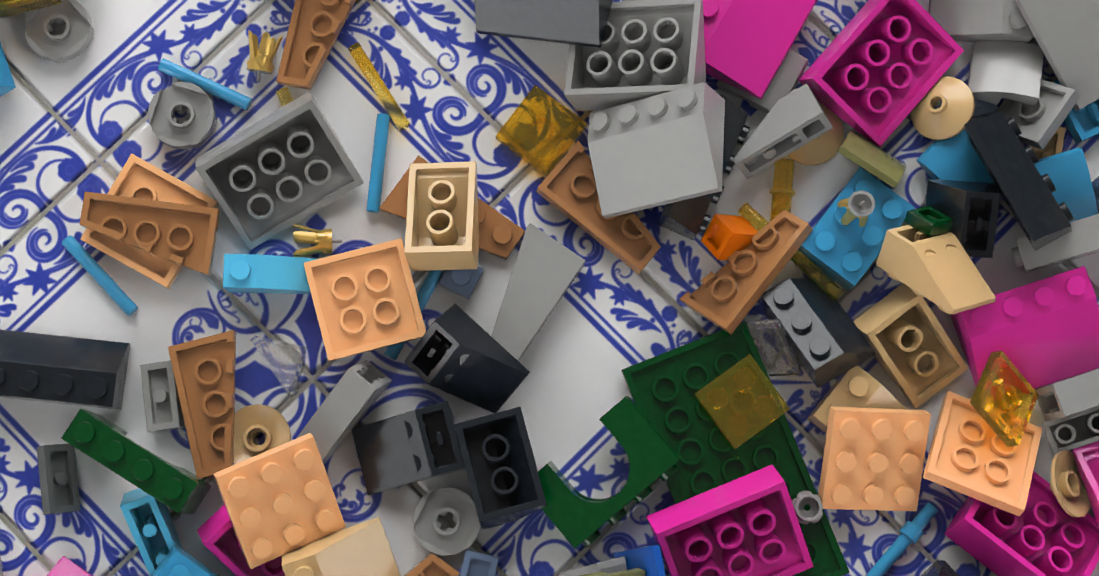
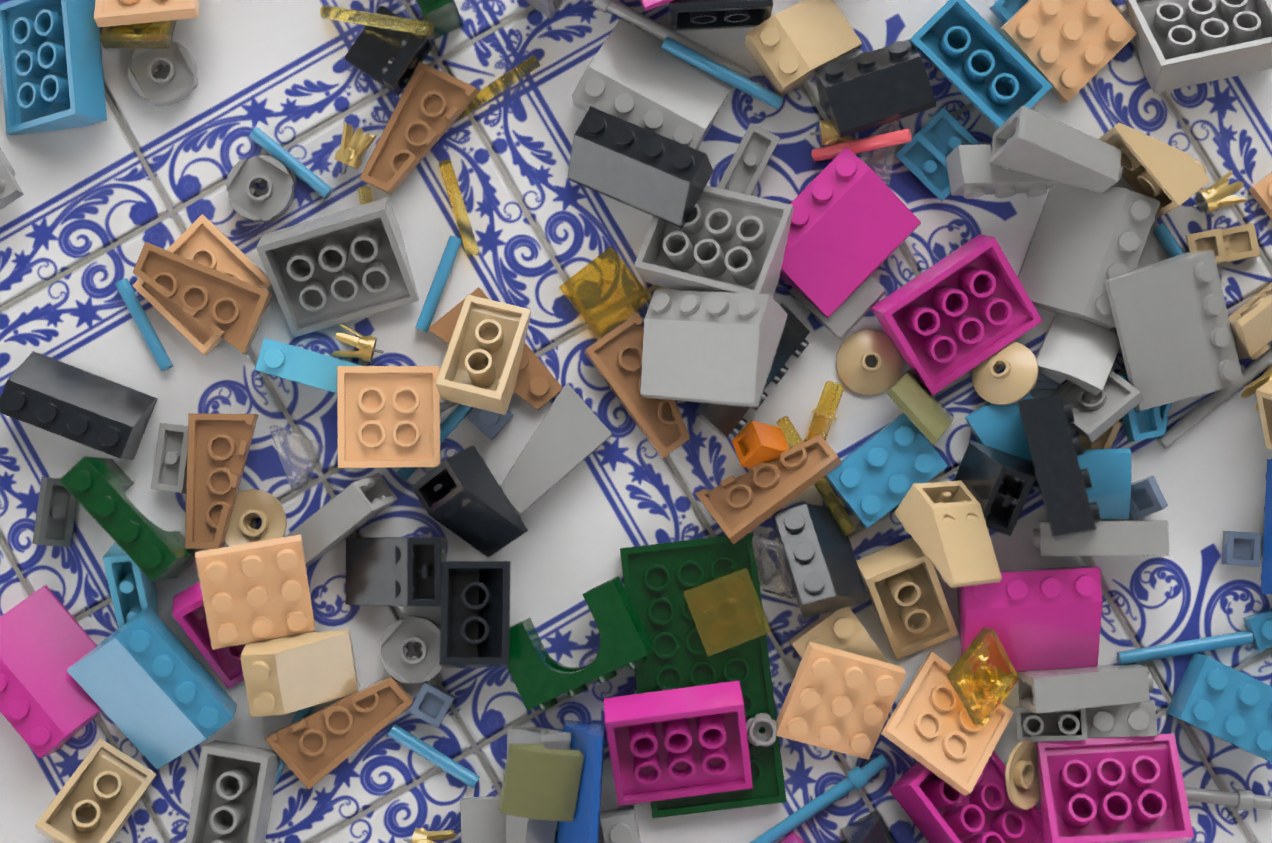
camera: 25 degrees right, 5 degrees up
(785, 128) = (843, 354): light grey slope -> none
(859, 206) = (891, 454): light grey piece -> none
(929, 221) = (958, 483): dark green tile -> none

